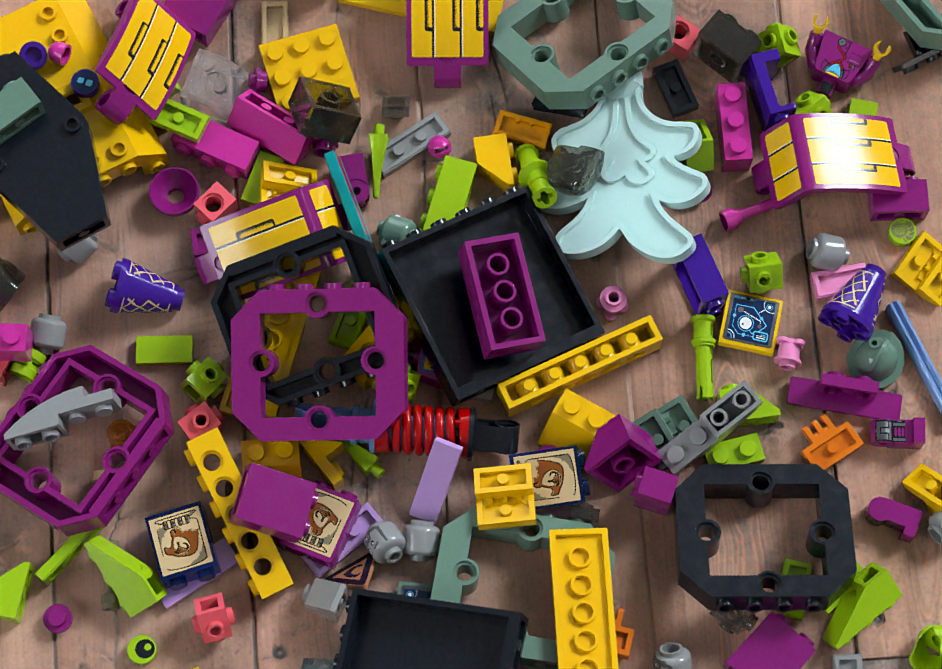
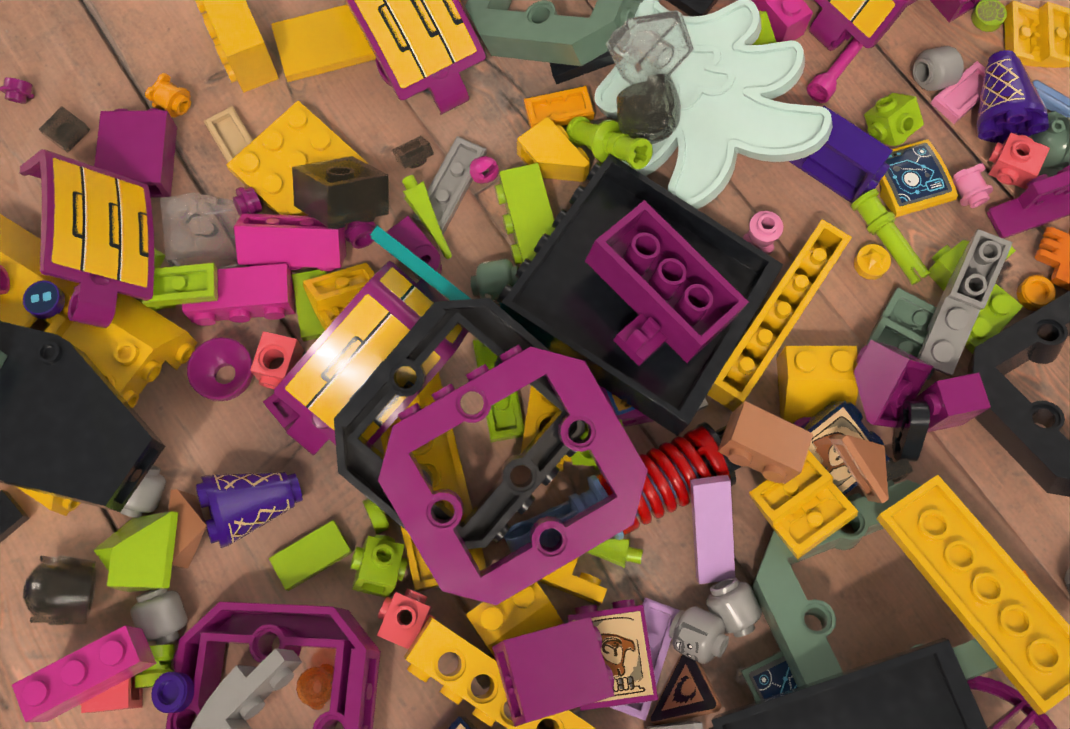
camera: 30 degrees left, 0 degrees up
(32, 384) = (172, 692): none -> dark purple tile
(57, 286) = (140, 553): none -> lime slope
(92, 286) = (189, 527): none -> nougat slope
(221, 349) = (376, 516): none -> lime tile
(461, 326) = (640, 338): none -> magenta tile
(498, 439) = (765, 443): none -> nougat brick
(564, 492) = (866, 464): none -> nougat slope
(601, 124) = (650, 45): none -> clear slope
(617, 494) = (911, 430): none -> black beam
(678, 367) = (872, 261): none -> yellow tile
(784, 453) = (1035, 292): none -> light orange tile
(833, 351) = (1017, 160): none -> coral brick

